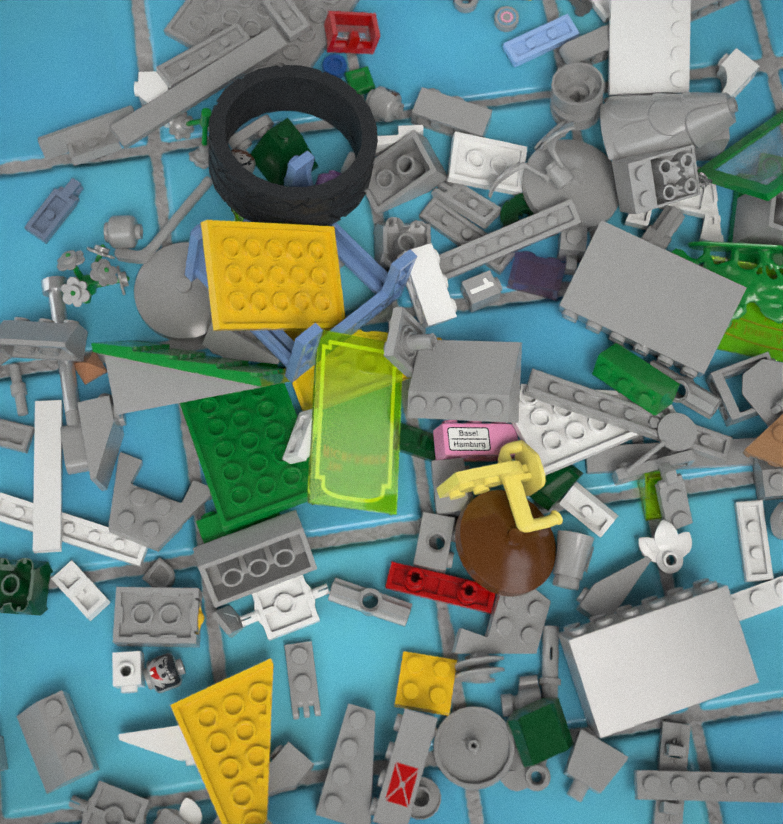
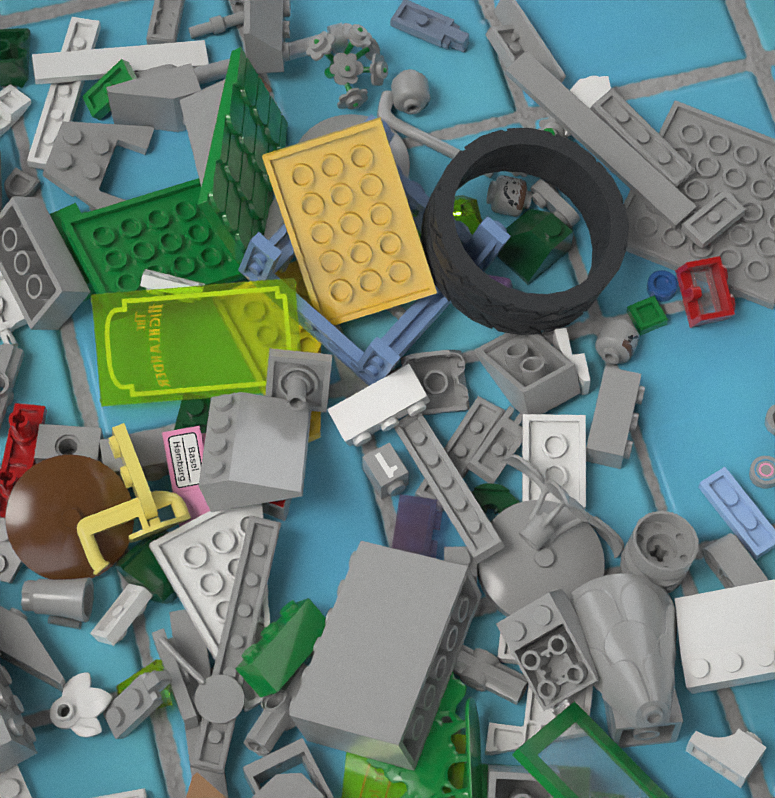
camera: 85 degrees right, 10 degrees down
(77, 484) = (97, 97): none -> green plate

